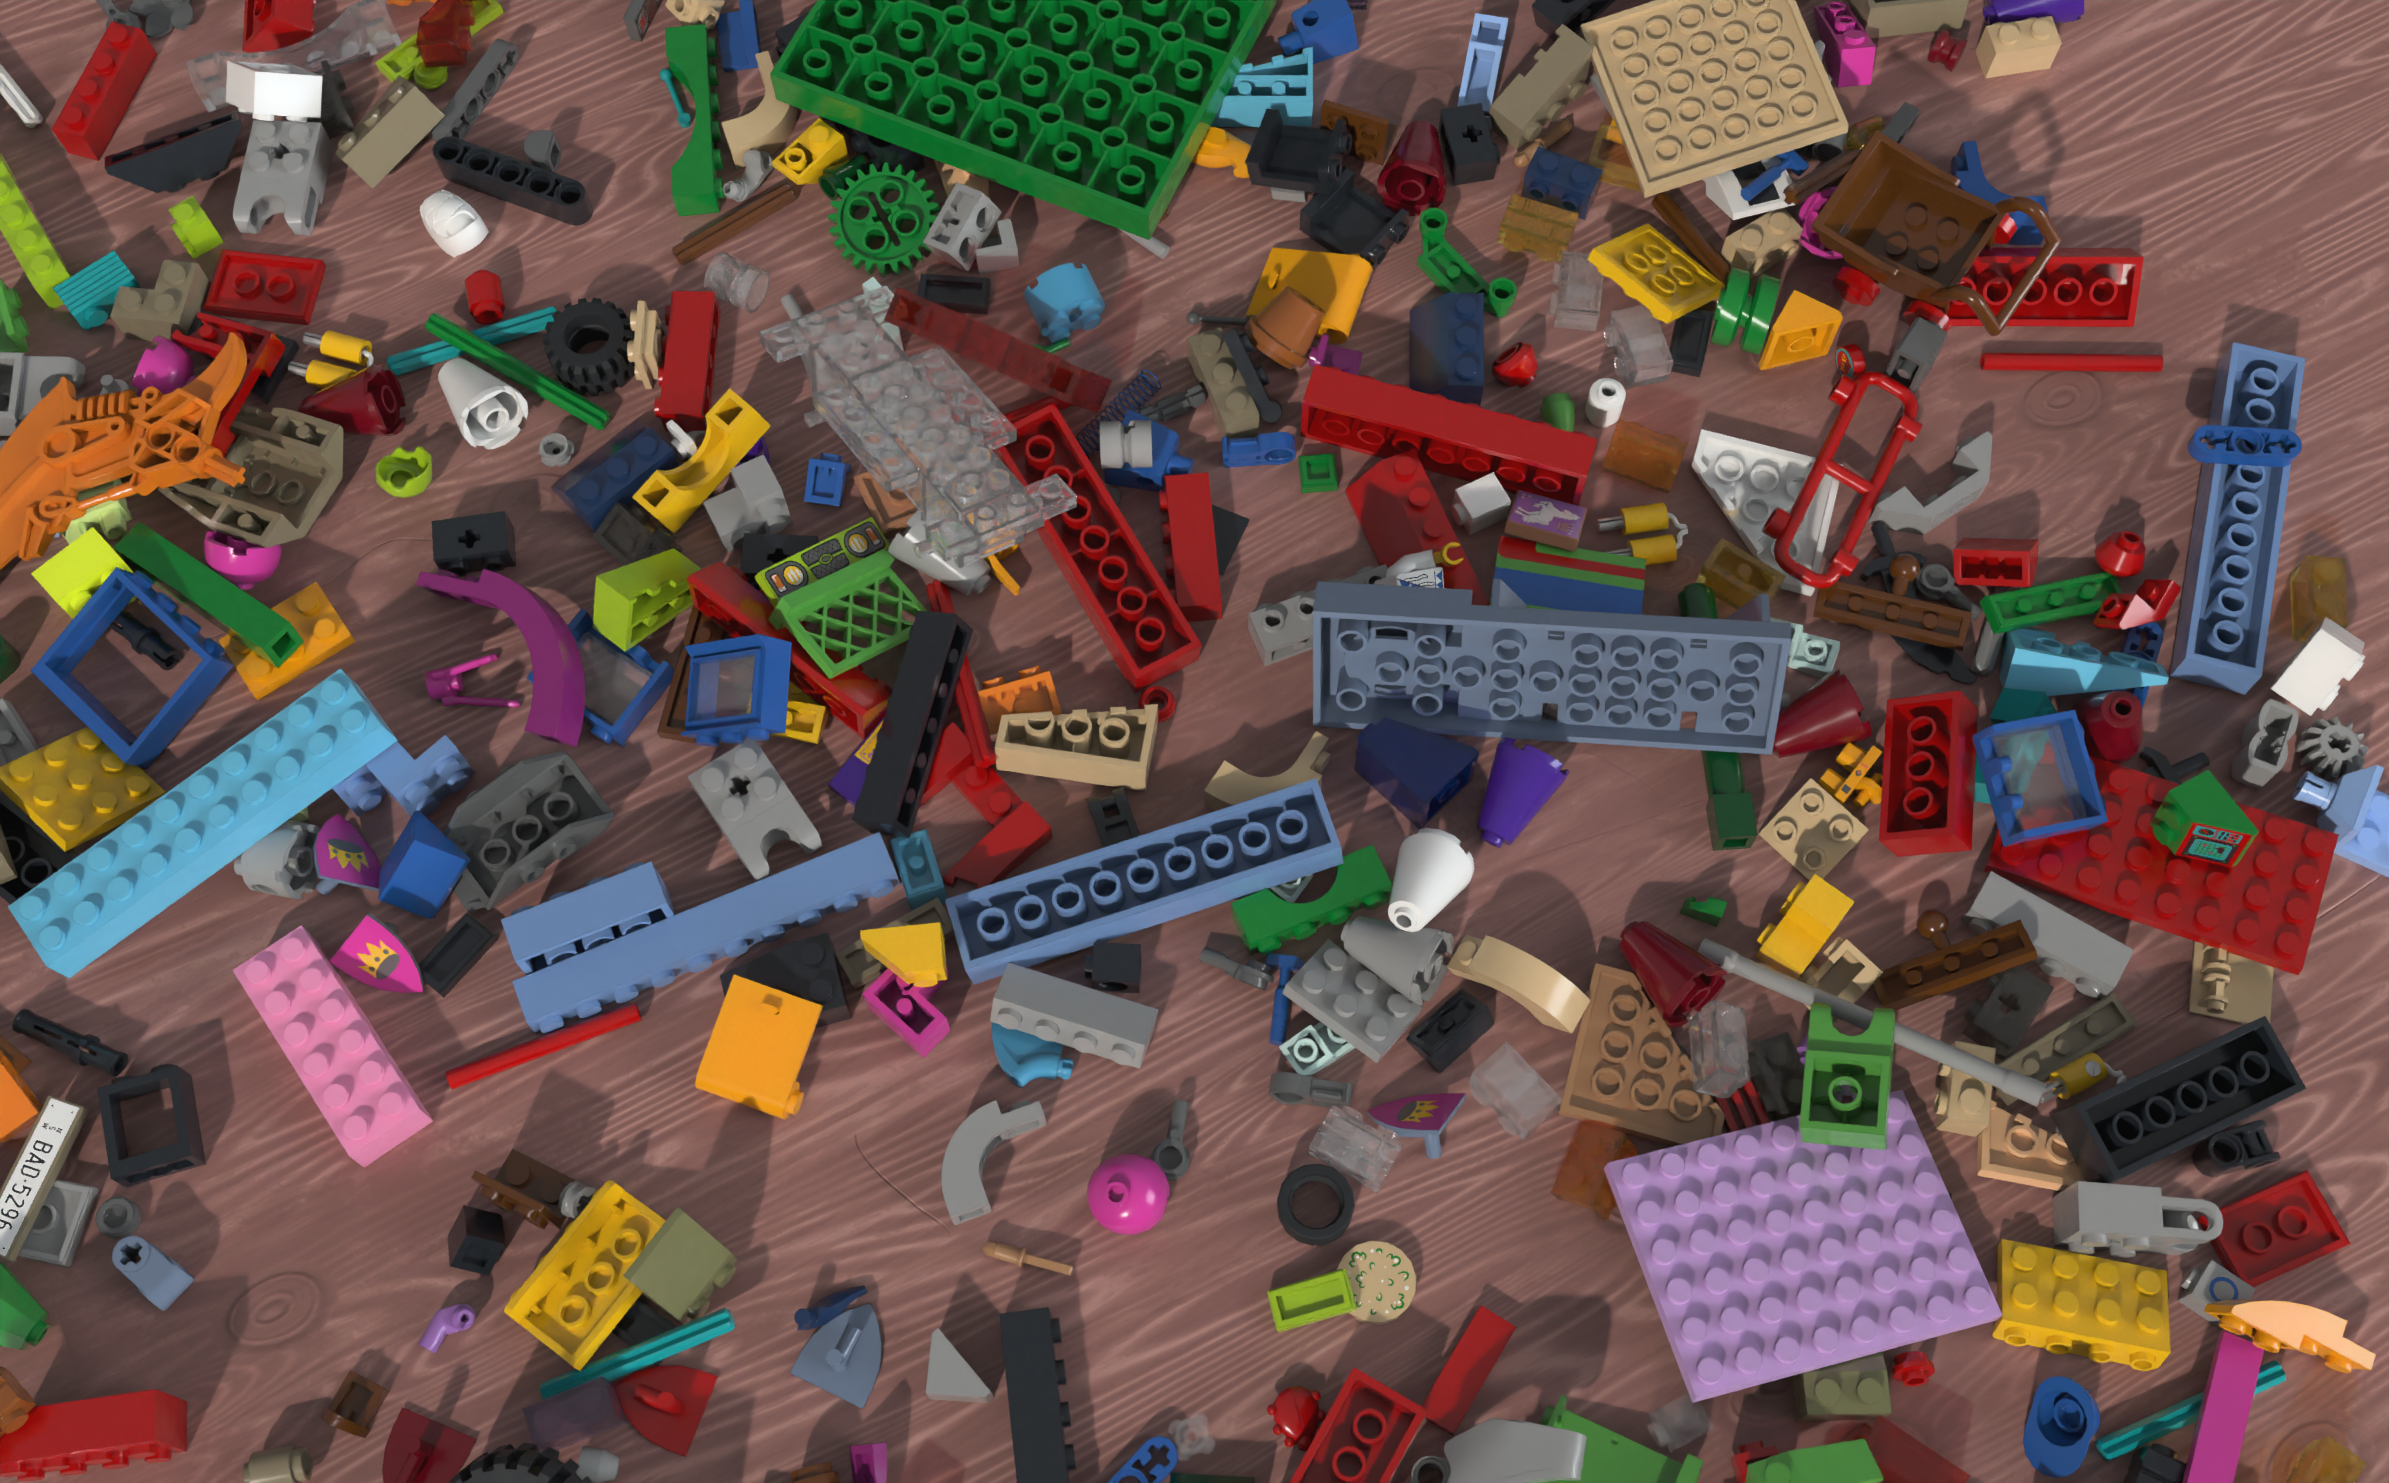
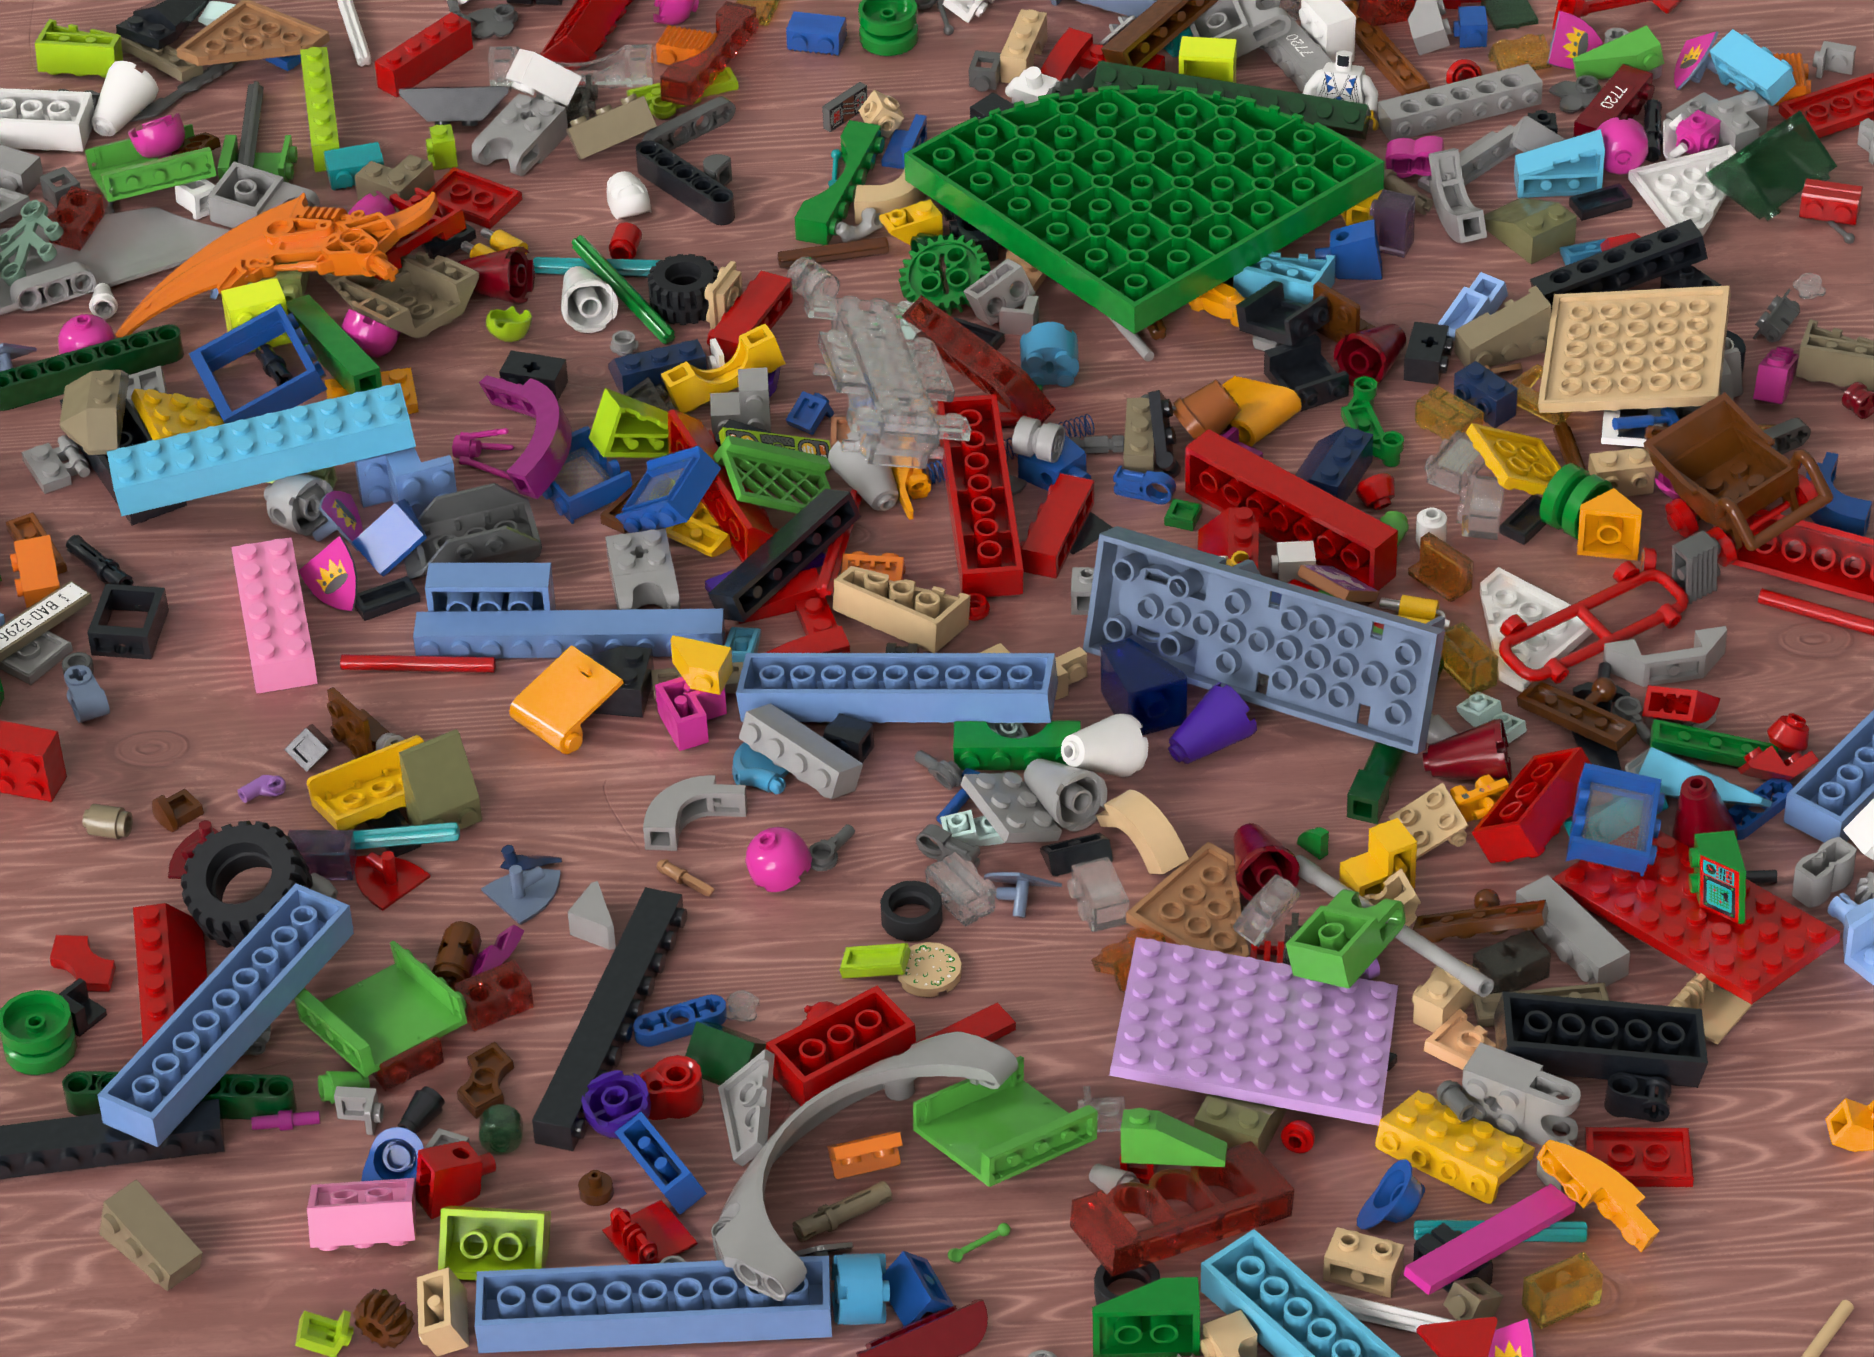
camera: 25 degrees right, 25 degrees down
(2069, 1255) = (1451, 1094): none -> dark grey pin

